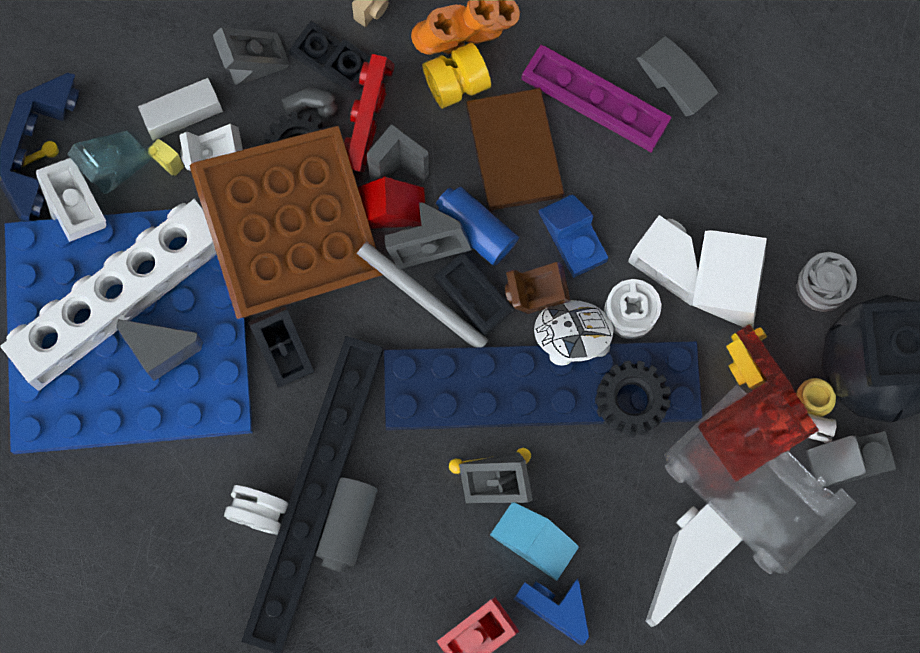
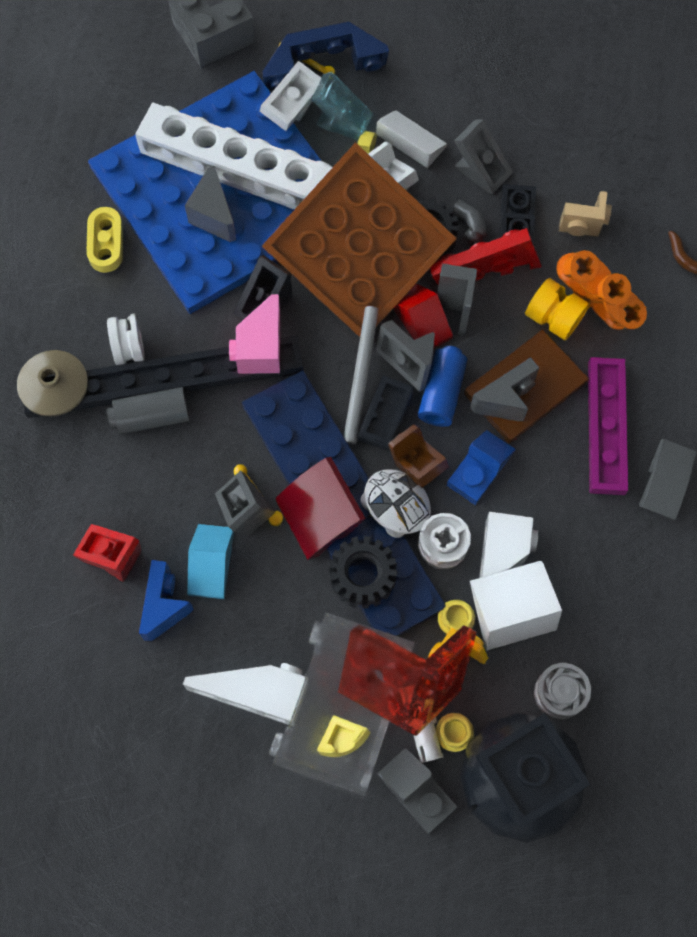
camera: 65 degrees right, 5 degrees down
(120, 479) = (104, 242): none -> light yellow plate
(283, 615) = (56, 396): none -> dark tan dish
(339, 374) = (258, 340): none -> bright pink slope
(522, 176) = (503, 395): none -> dark grey slope
(544, 407) = (319, 508): none -> slope
(711, 338) = (455, 616): none -> light yellow plate
(781, 499) = (342, 738): none -> light yellow tile

